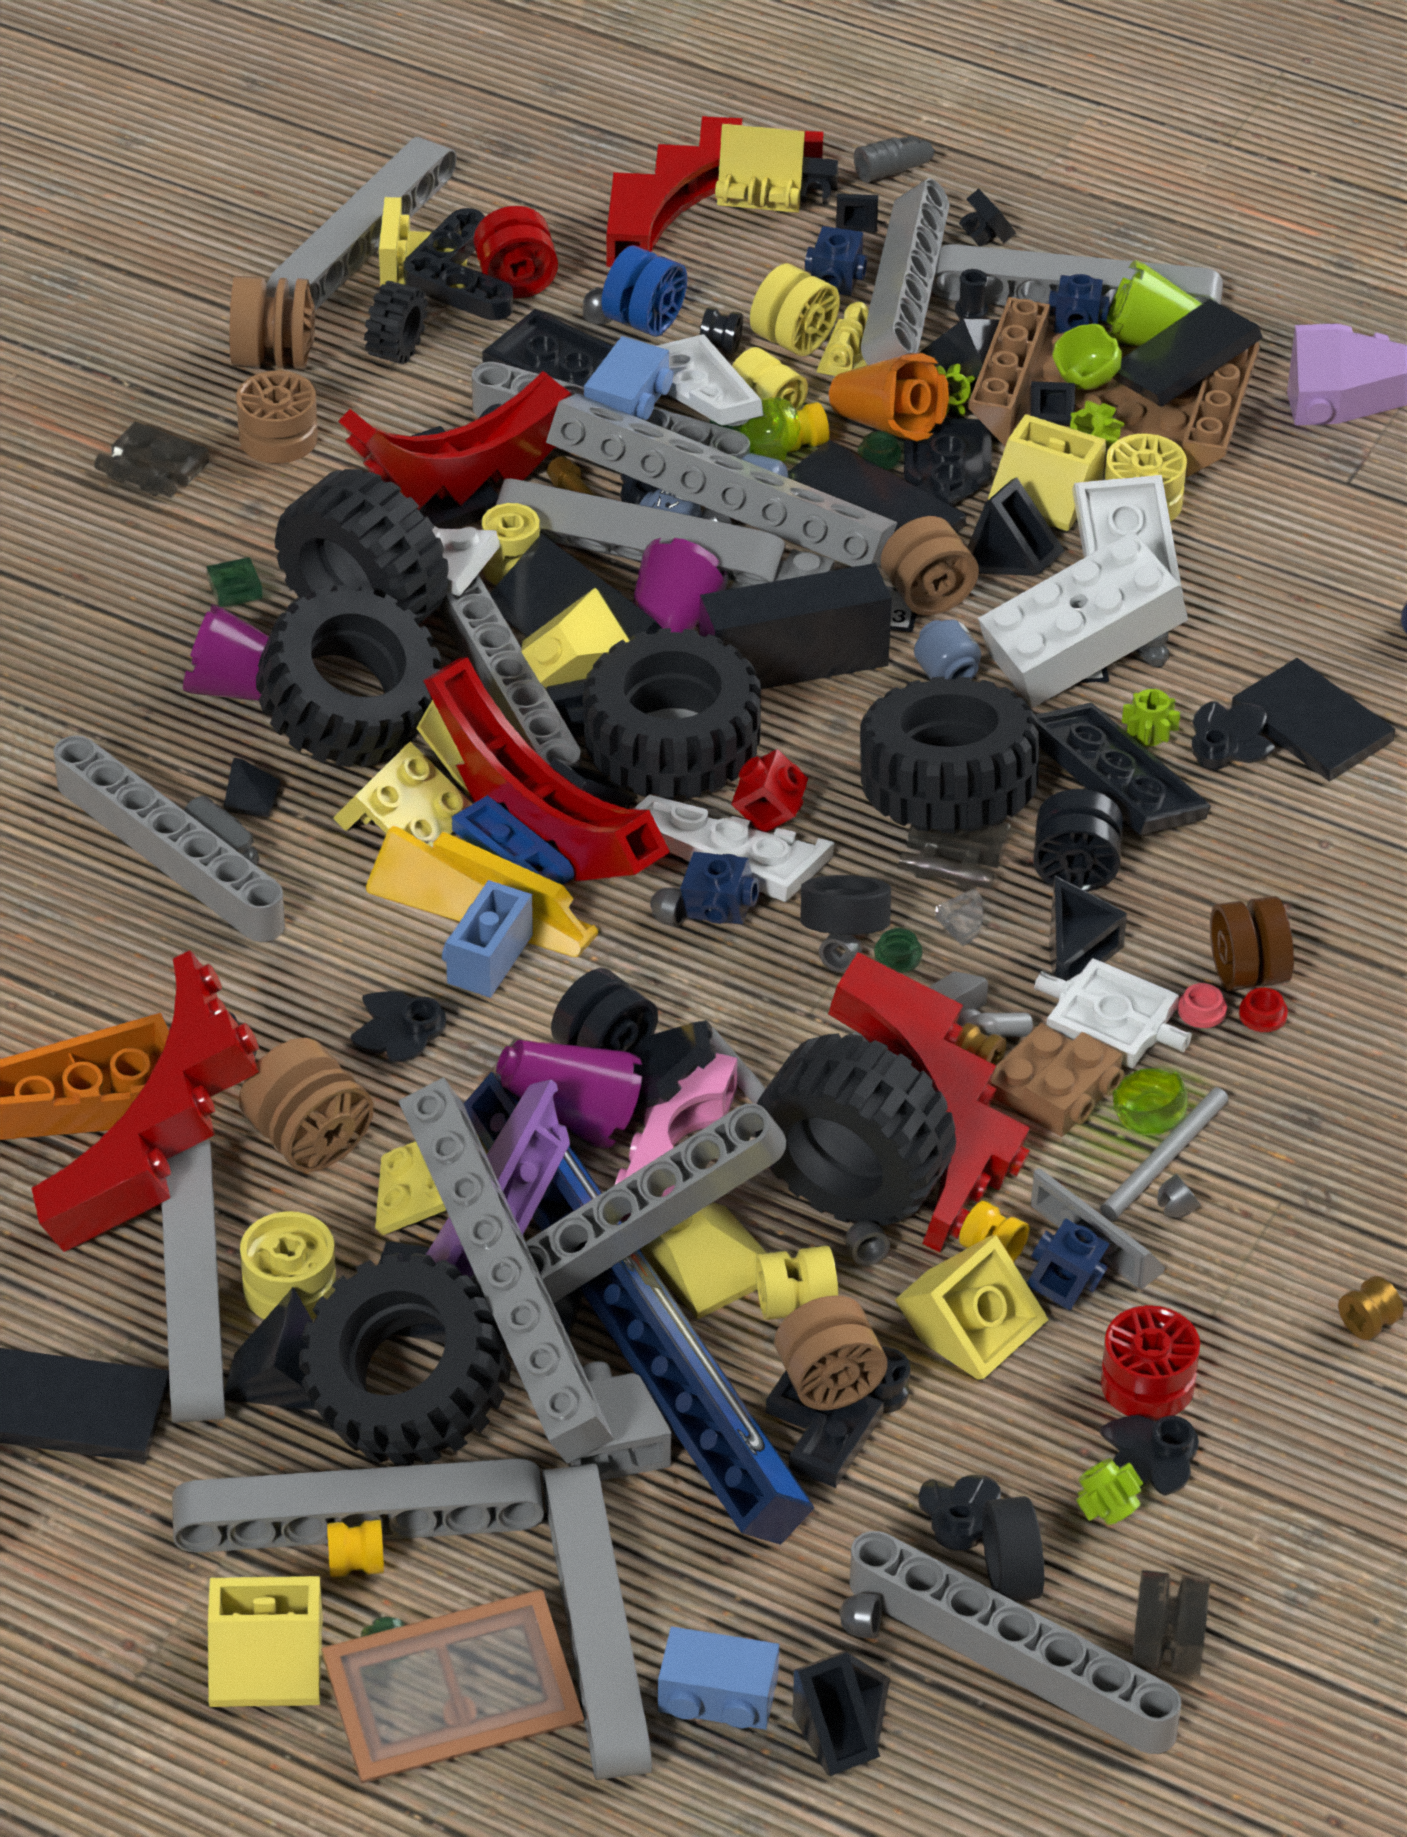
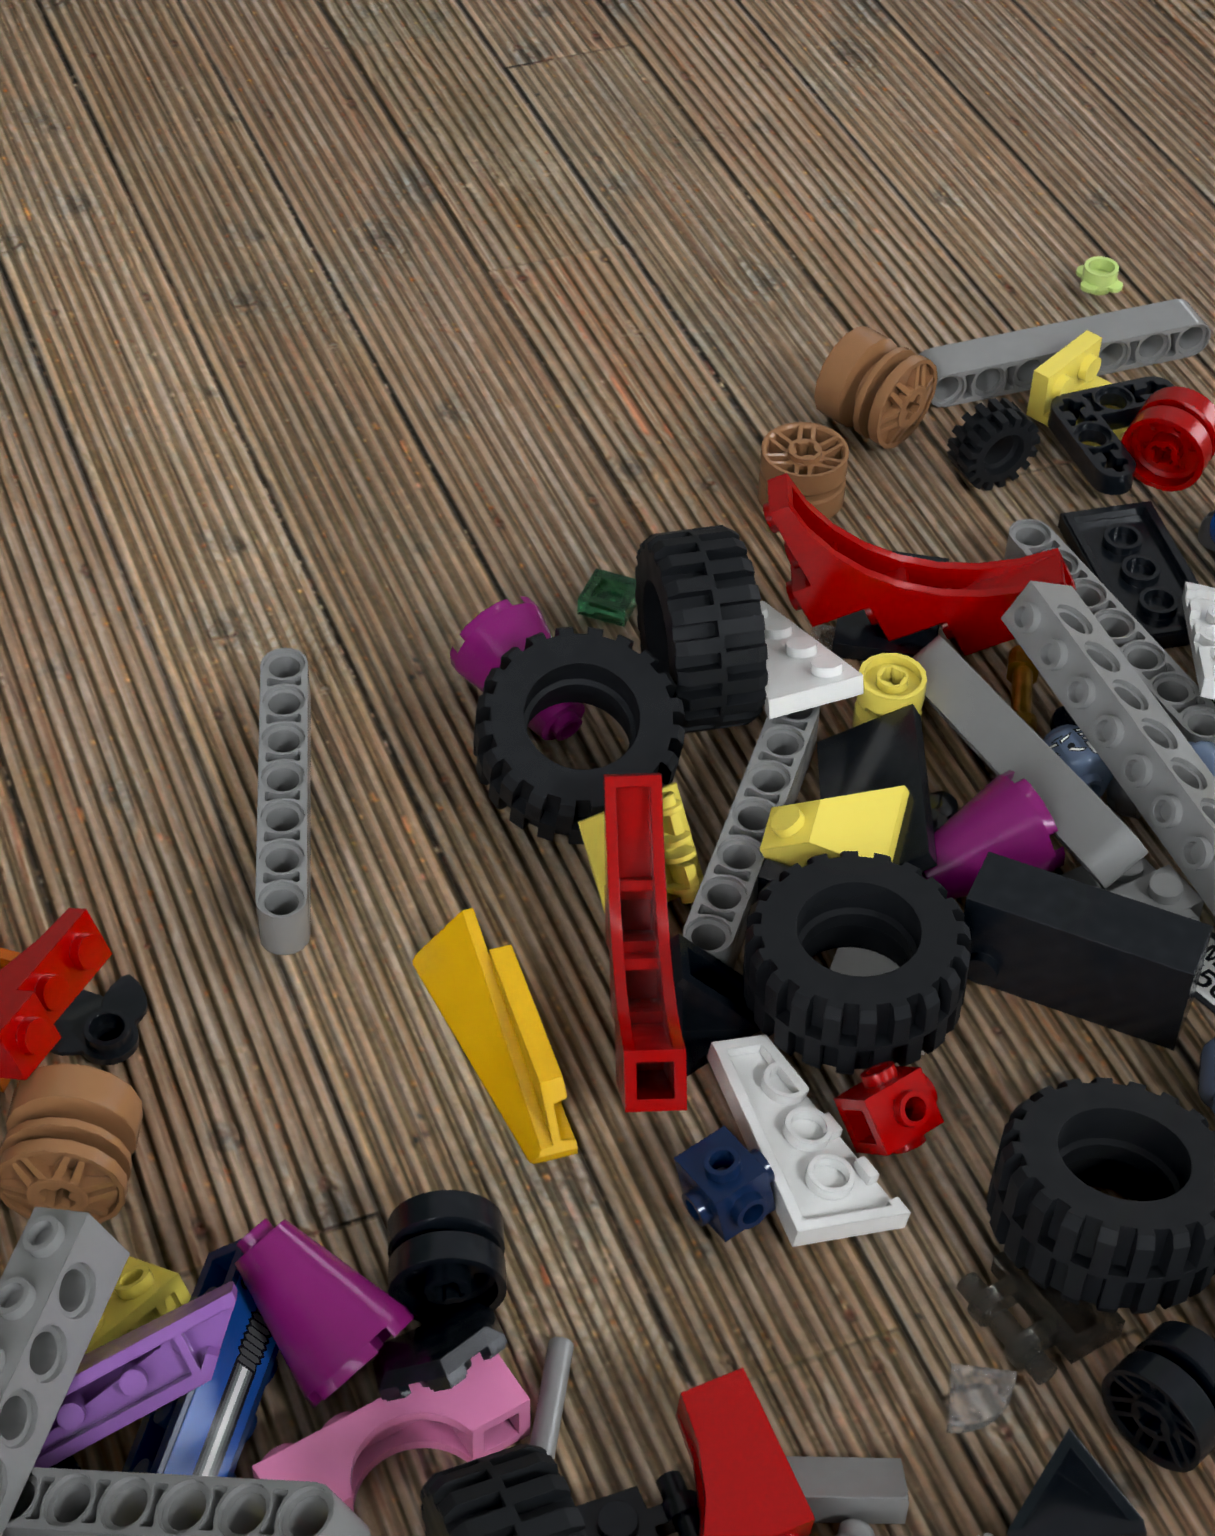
camera: 40 degrees right, 0 degrees up
(153, 460) = (676, 455): clear smoke plate -> none
(223, 826) = (335, 818): dark grey hinge -> none
(250, 790) = (413, 796): black slope -> none
(325, 148) = (1099, 276): none -> yellowish green plate
(399, 1025) = (271, 1125): black plate -> none
(407, 795) = (530, 897): light yellow bracket -> none
(488, 939) = (439, 1086): medium blue brick -> none
(502, 834) = (580, 1003): blue plate -> none
(631, 378) = (1143, 602): medium blue brick -> none
(668, 907) = (661, 1172): flat silver hinge -> none
(832, 958) = (794, 1345): flat silver hinge -> none
(845, 904) = (836, 1295): black tyre -> none
(898, 950) = (857, 1390): clear green plate -> none

